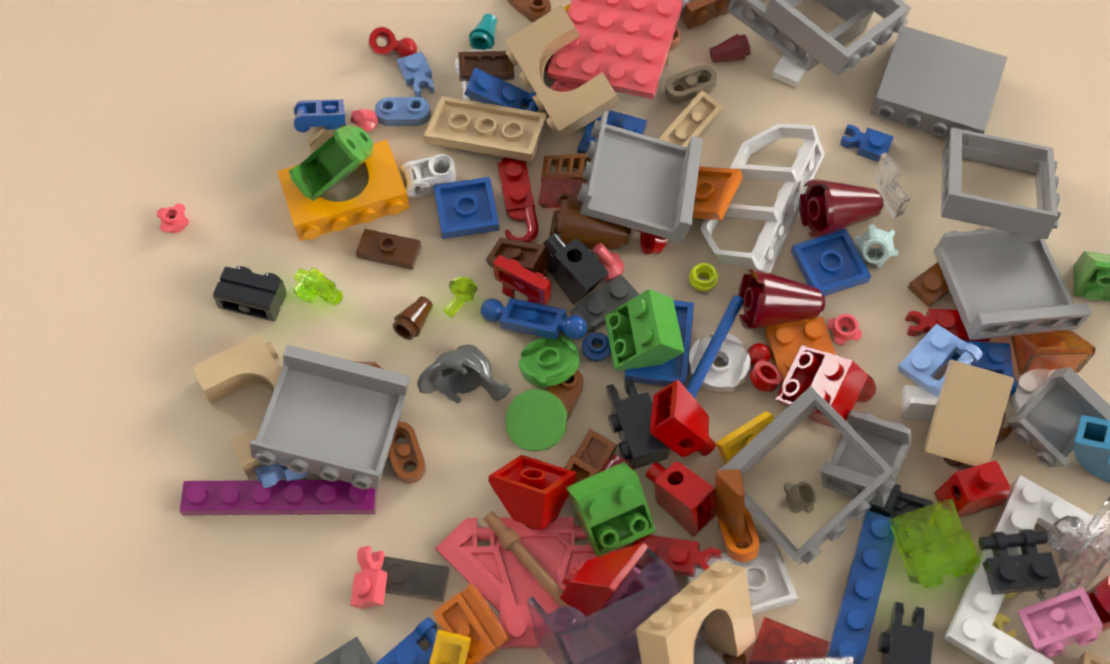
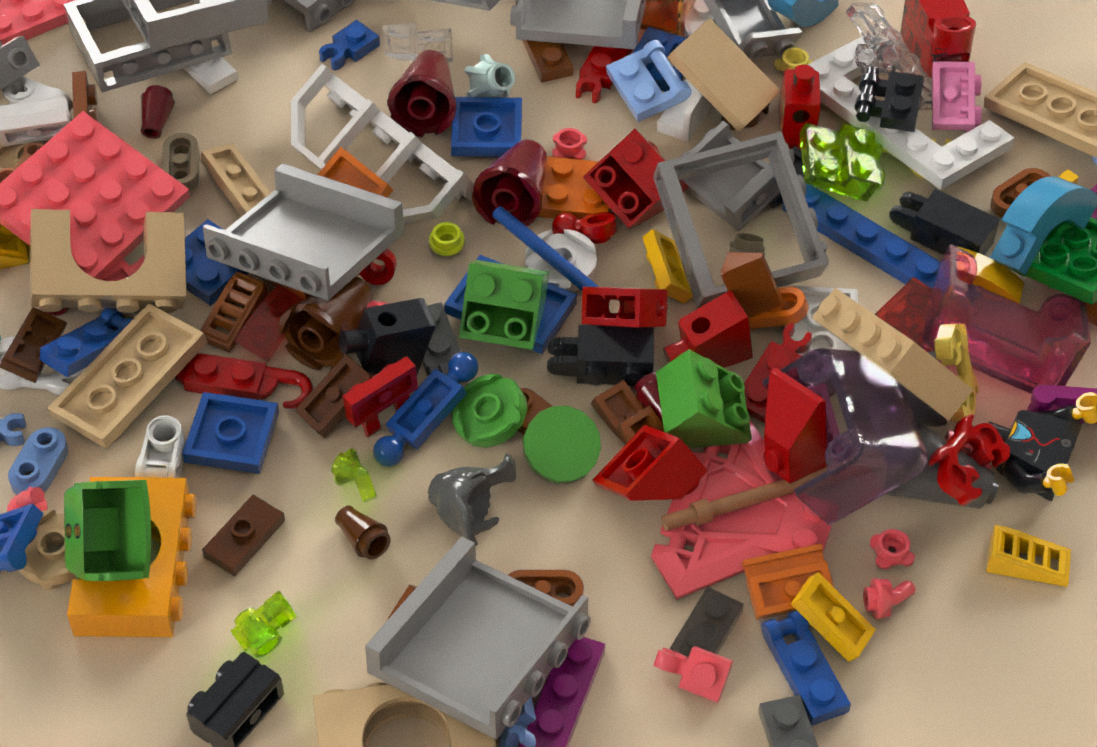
camera: 70 degrees left, 10 degrees down
(596, 354) = (495, 357): blue plate -> none
(1038, 466) = (792, 58): none -> light yellow plate

